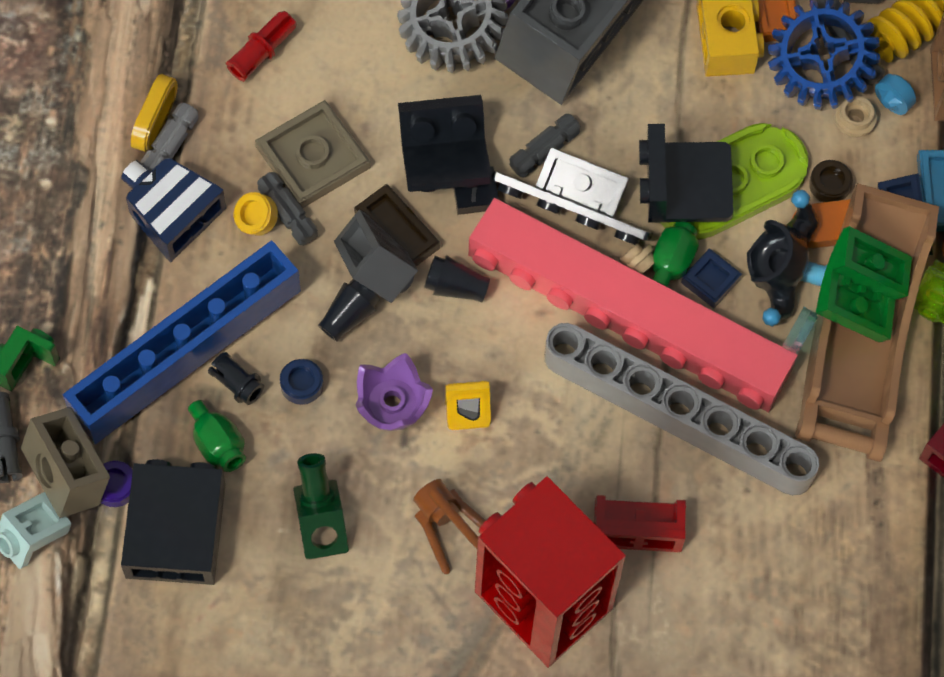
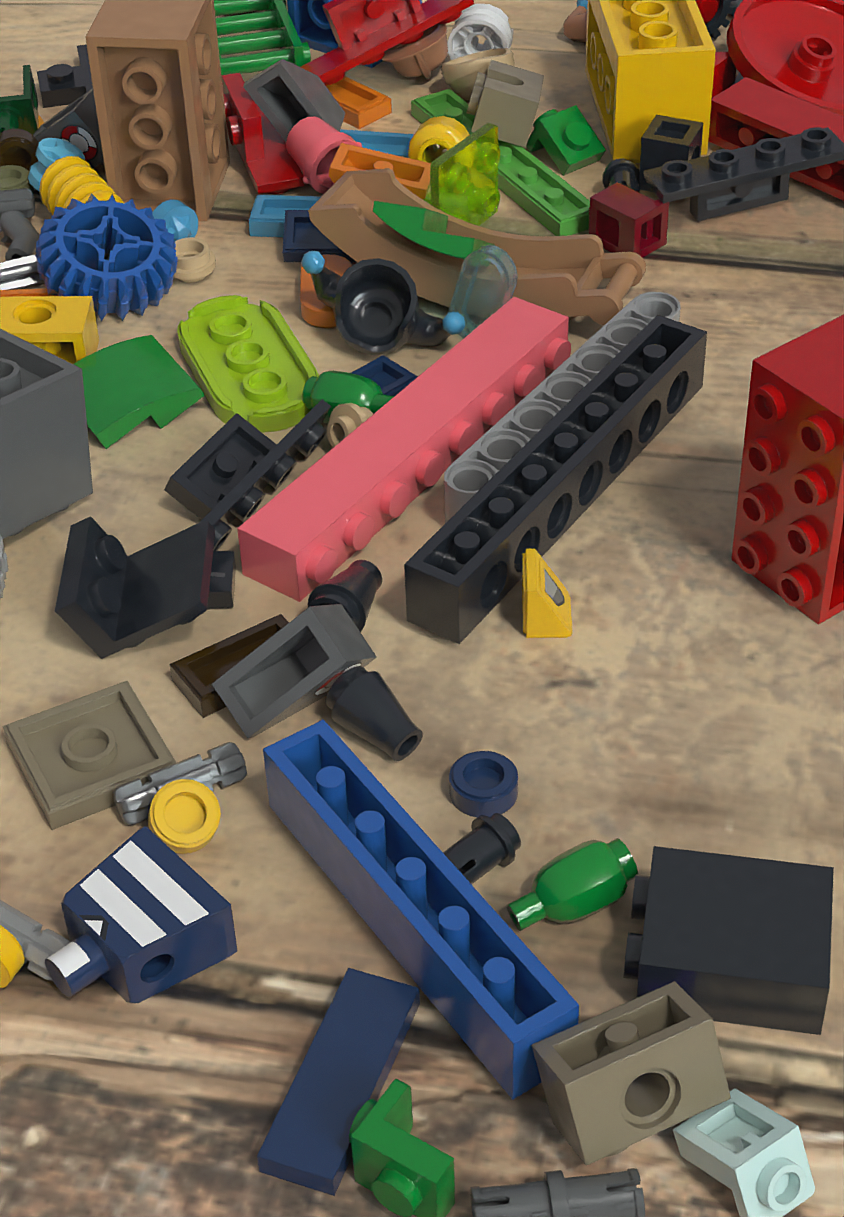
camera: 80 degrees left, 25 degrees down
(78, 323) = (336, 1078): none -> dark blue tile
(319, 506) = (694, 757): dark green bracket -> none
(395, 379) = (534, 661): medium lavender piece -> none
(441, 506) = (702, 630): dark orange plant -> none
(538, 148) = (148, 504): dark grey axle -> none
(592, 406) = (553, 479): none -> black brick
(642, 524) = (716, 456): red hinge -> none
(681, 98) = (132, 383): none -> green slope
(685, 179) = (247, 370): black bracket -> none
(830, 181) = (270, 285): dark brown tile -> none

